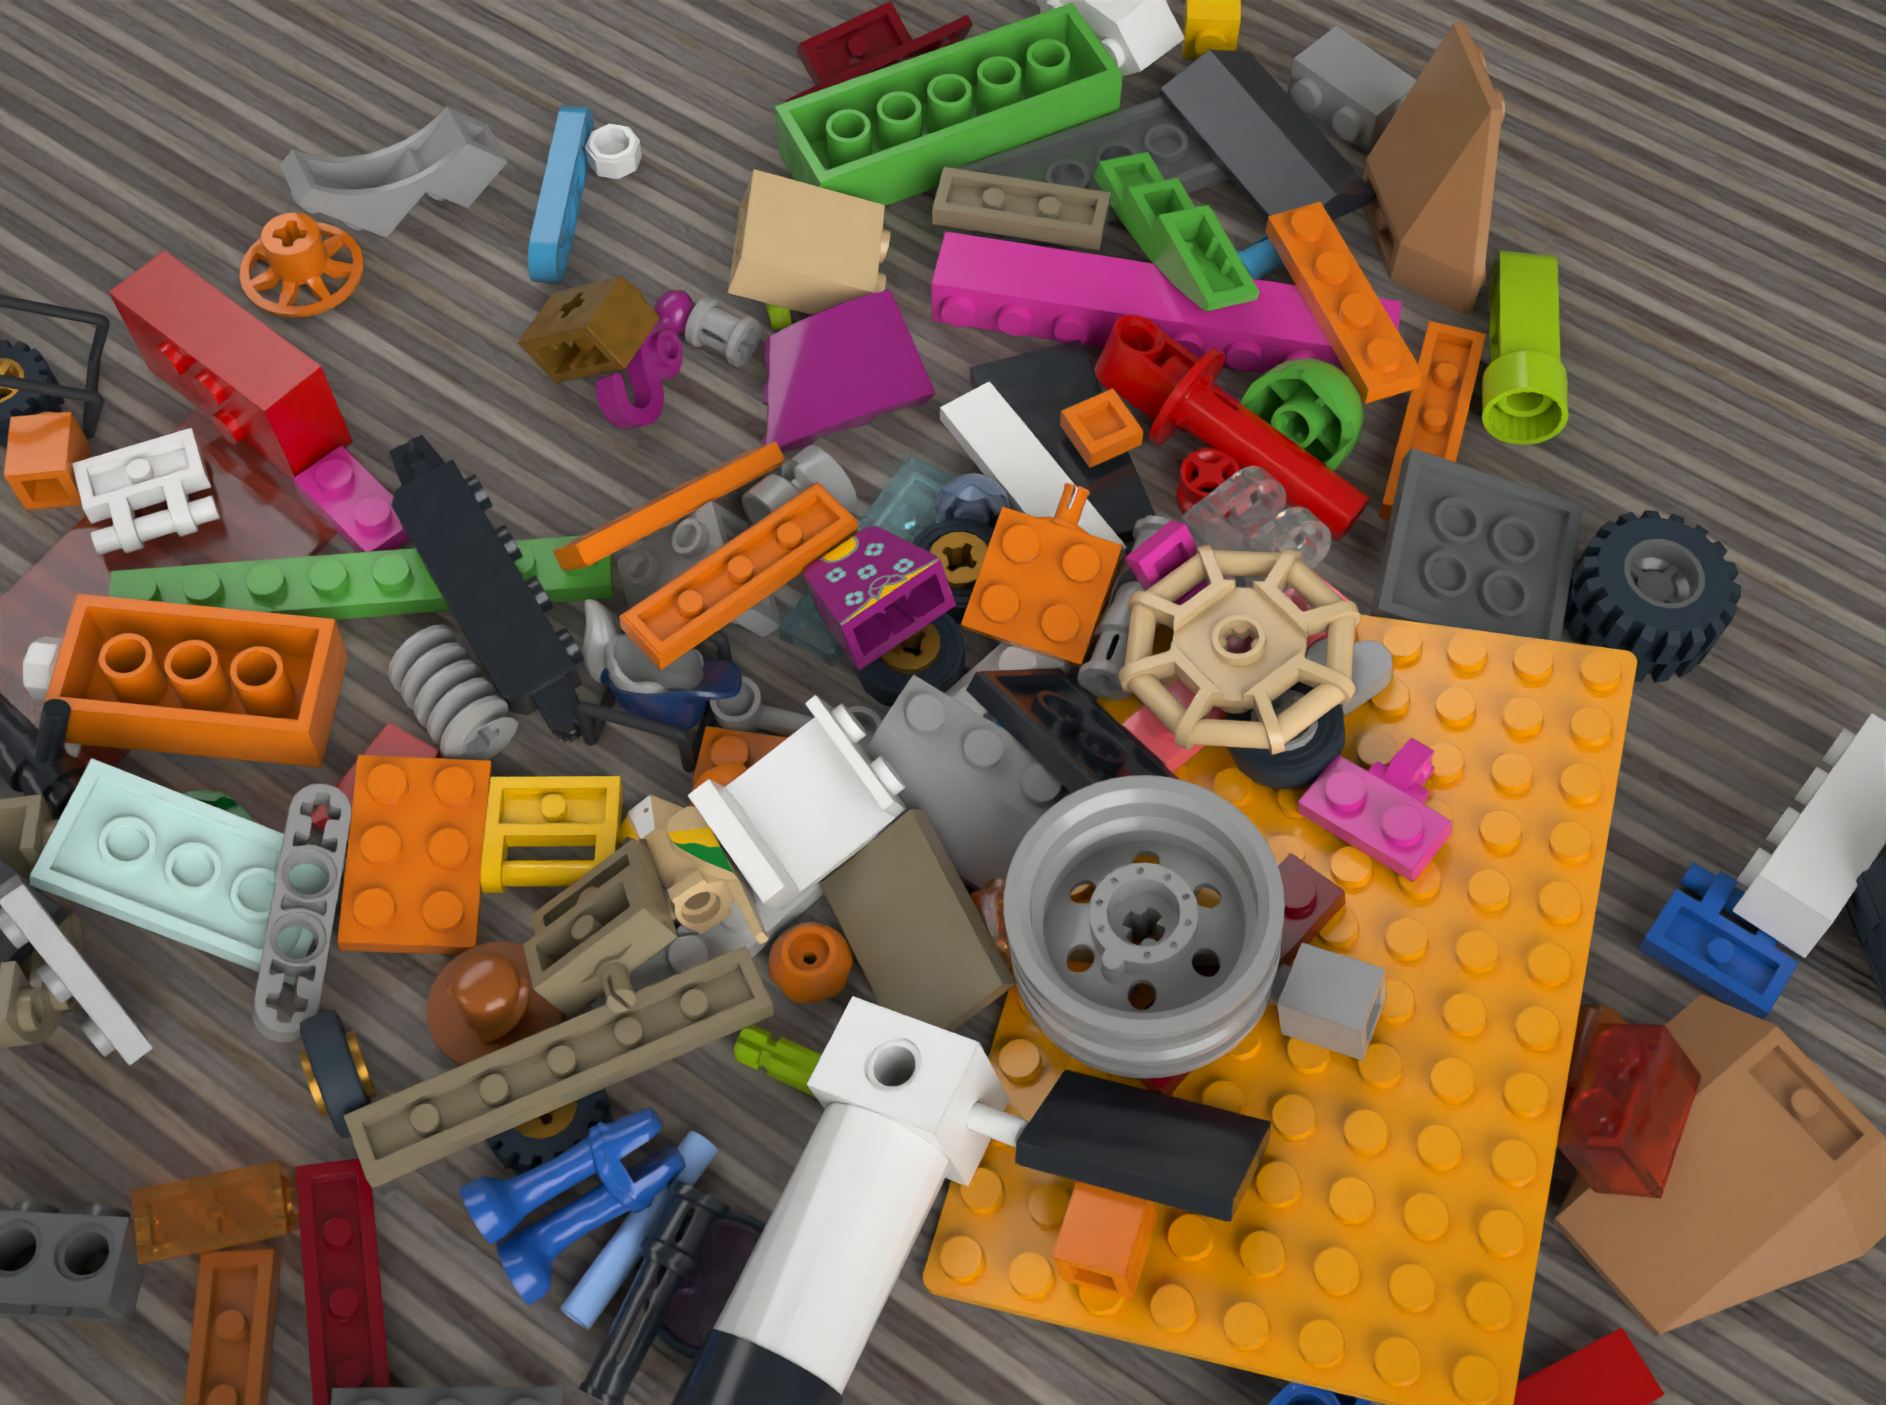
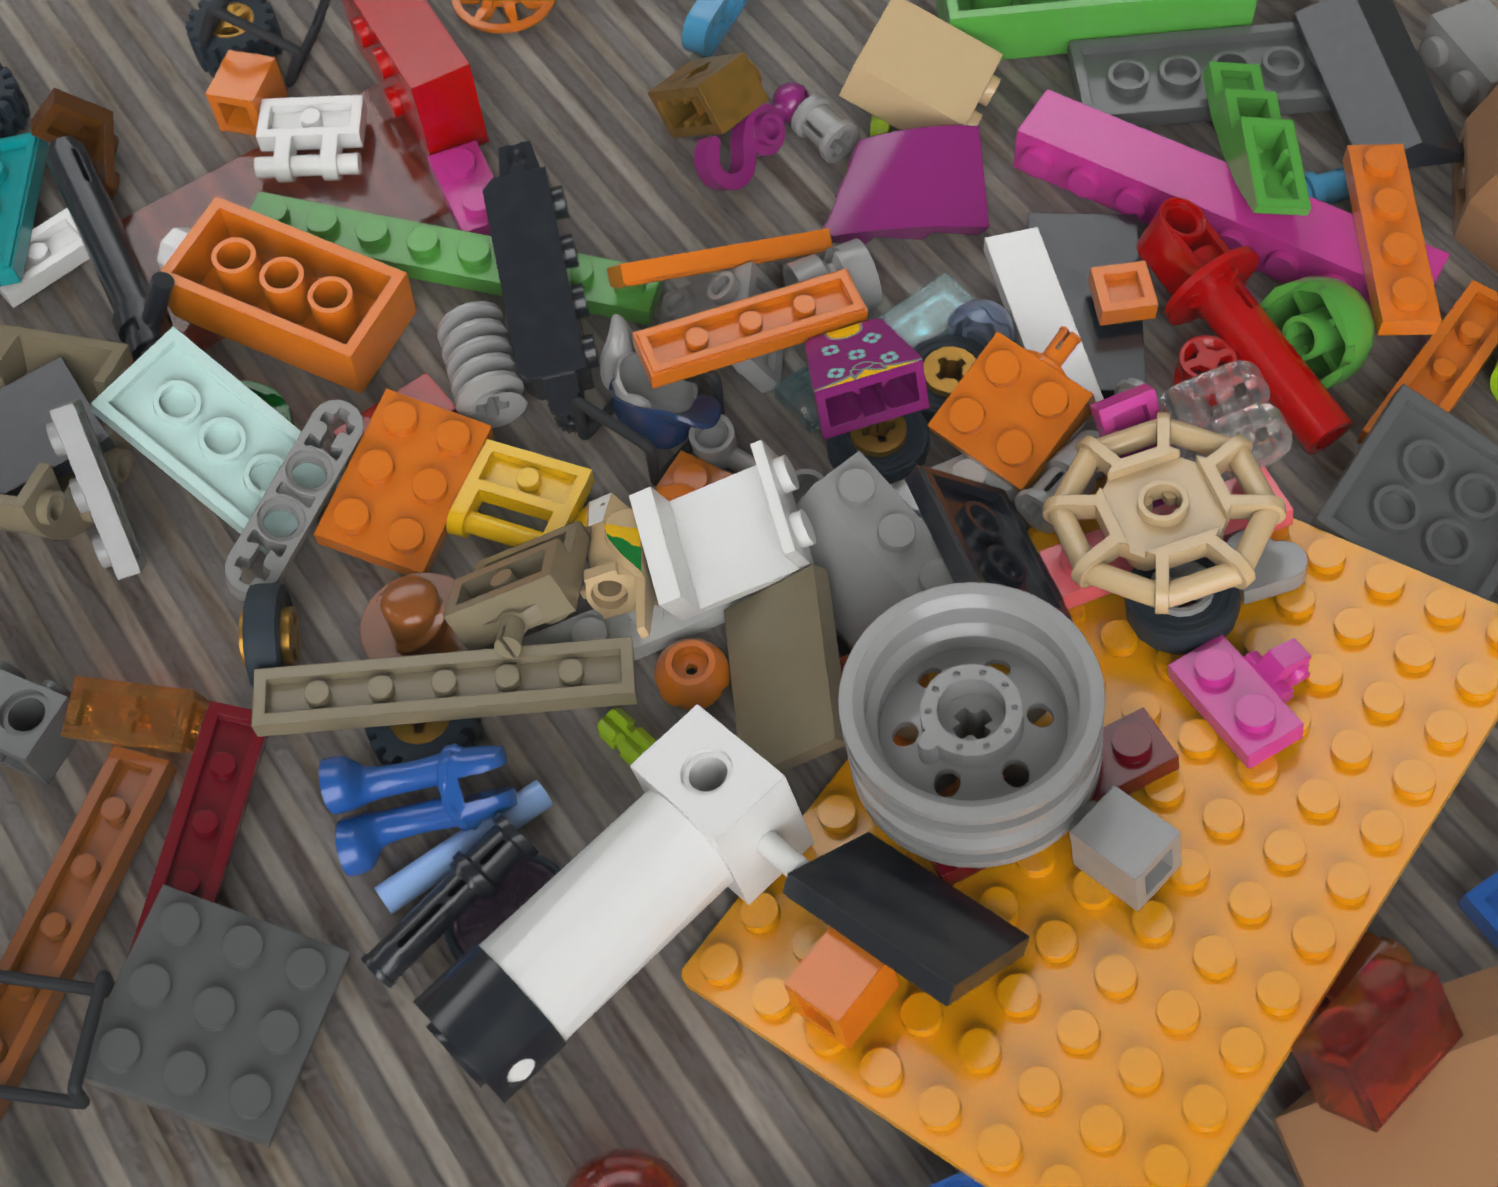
camera: 25 degrees right, 0 degrees up
(1021, 208) = (1124, 86): dark tan plate -> none

